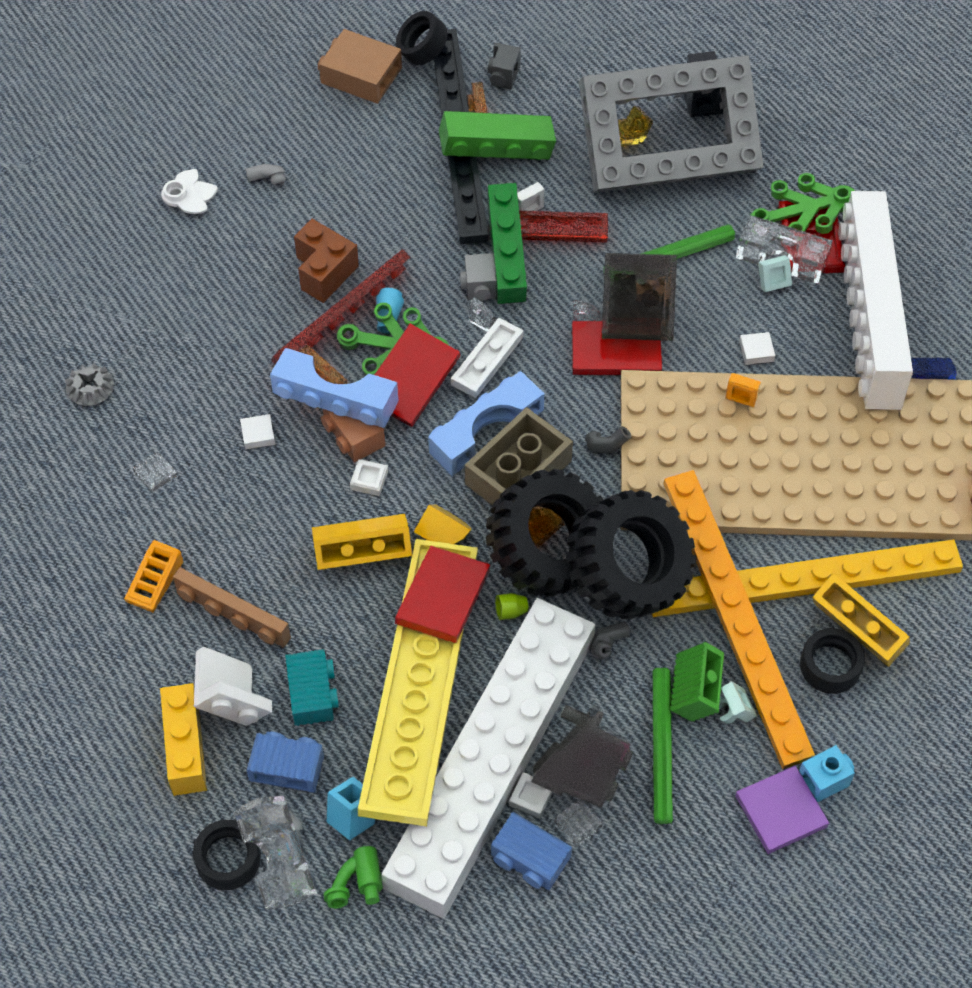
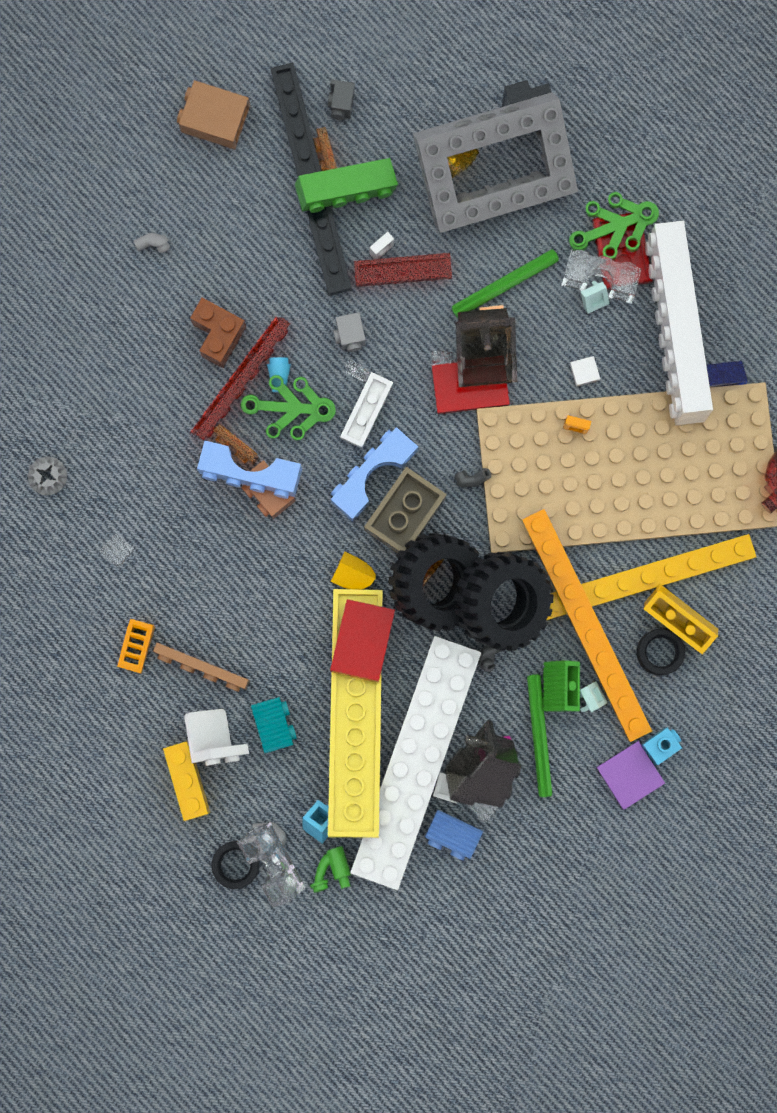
camera: 10 degrees left, 25 degrees up
(188, 192) = (93, 270): white plate -> none
(257, 431) = (192, 503): white tile -> none
(285, 761) = (265, 788): medium blue brick -> none
(361, 541) = (292, 599): yellow brick -> none
(369, 477) = (287, 533): white tile -> none
(419, 367) = (308, 436): red tile -> none
(430, 46) = (278, 83): black tyre -> none
(507, 243) = (369, 299): green brick -> none
(510, 606) = (414, 635): lime hose -> none

